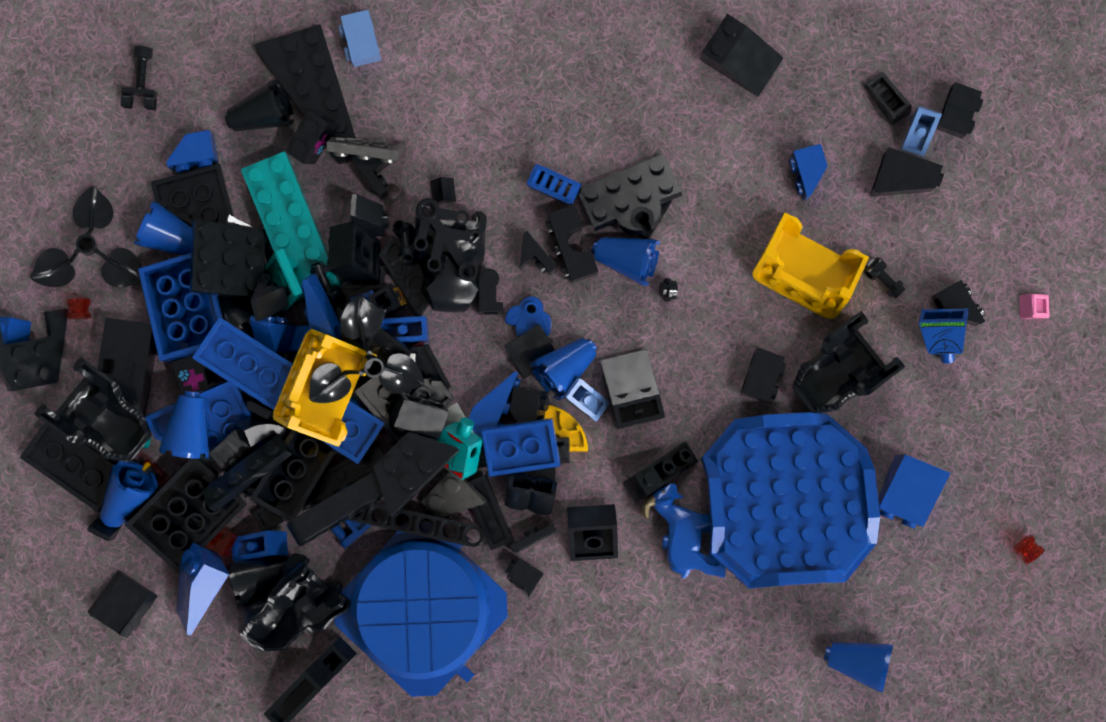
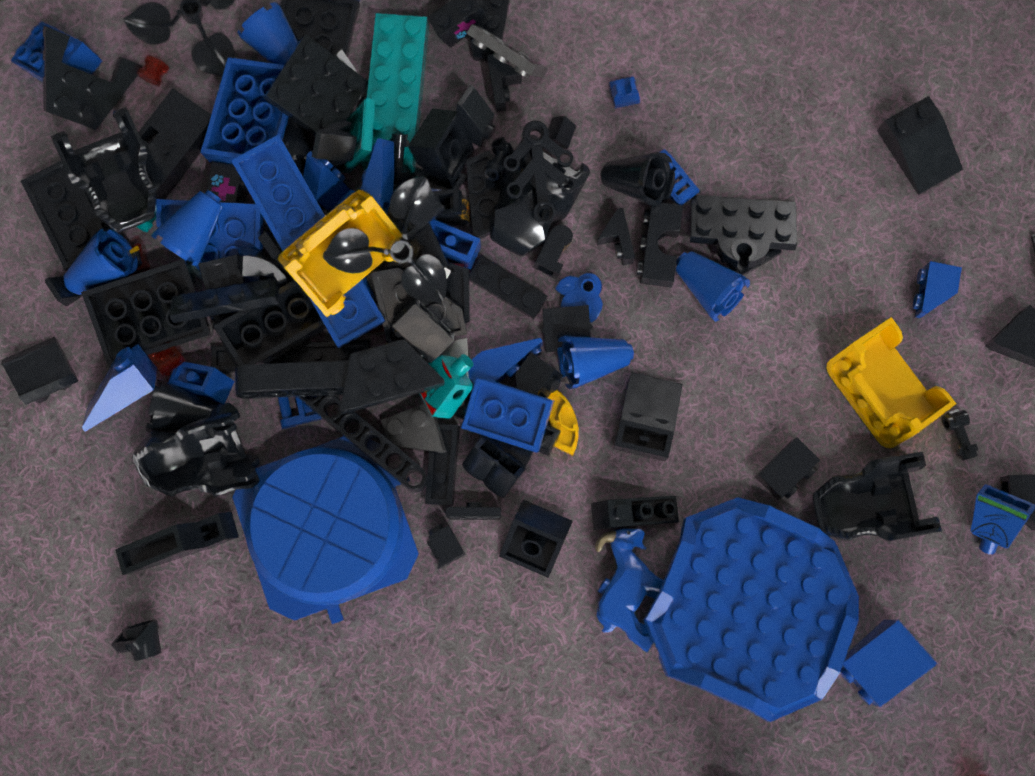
camera: 30 degrees right, 5 degrees down
(466, 341) = (507, 287): none -> black plate
(478, 130) = (624, 92): none -> blue tile
(529, 199) = (641, 177): none -> black cone
(586, 399) = (597, 401): medium blue slope -> none
(668, 290) = (734, 336): black plate -> none

